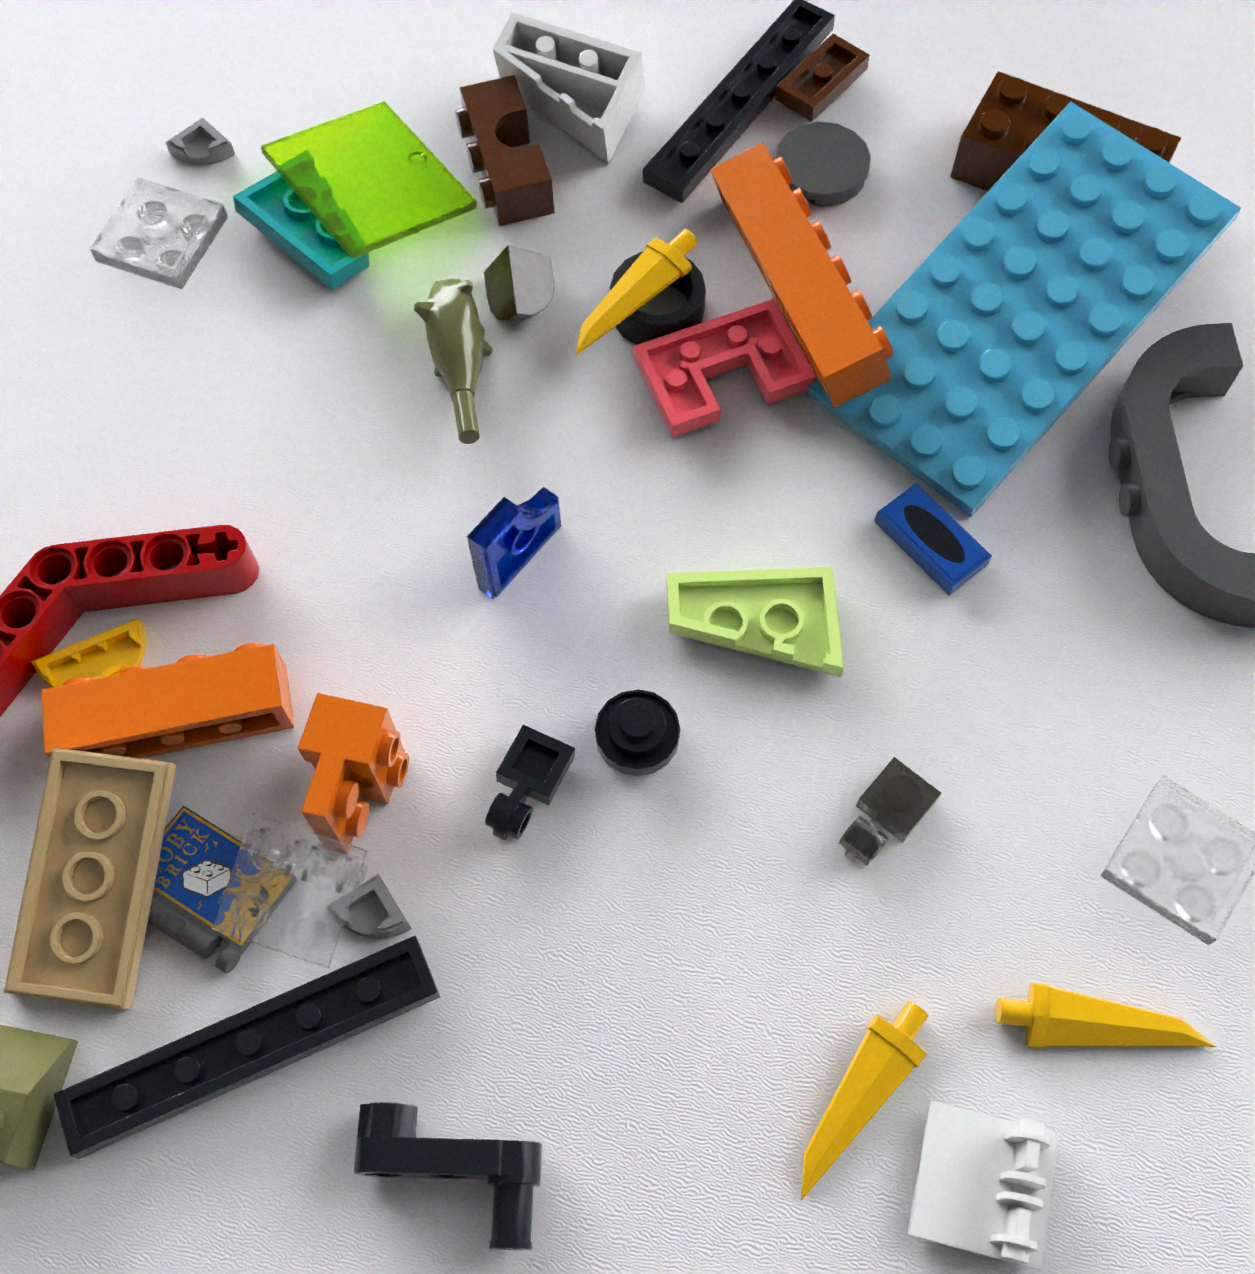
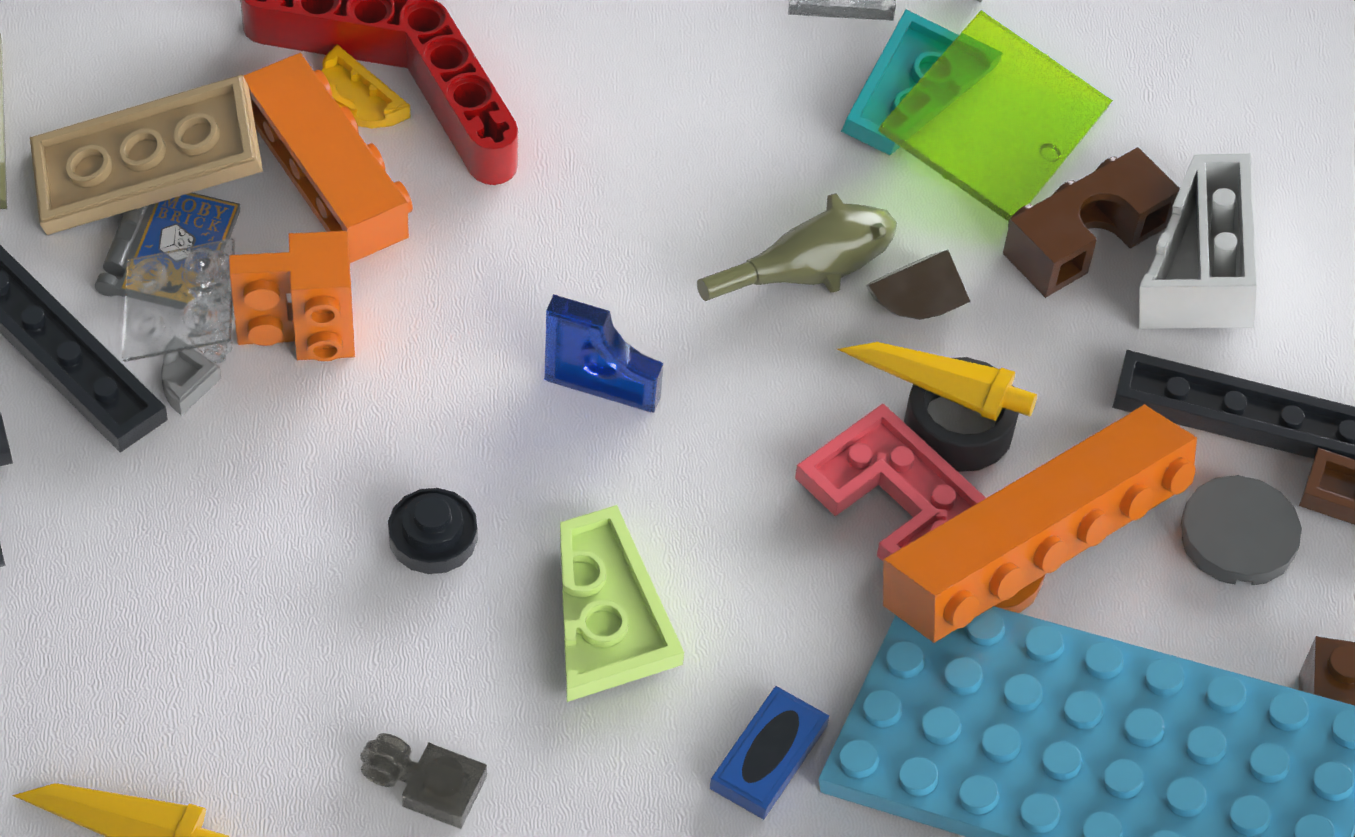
camera: 65 degrees right, 10 degrees down
(532, 769) = (363, 457): black plate -> none

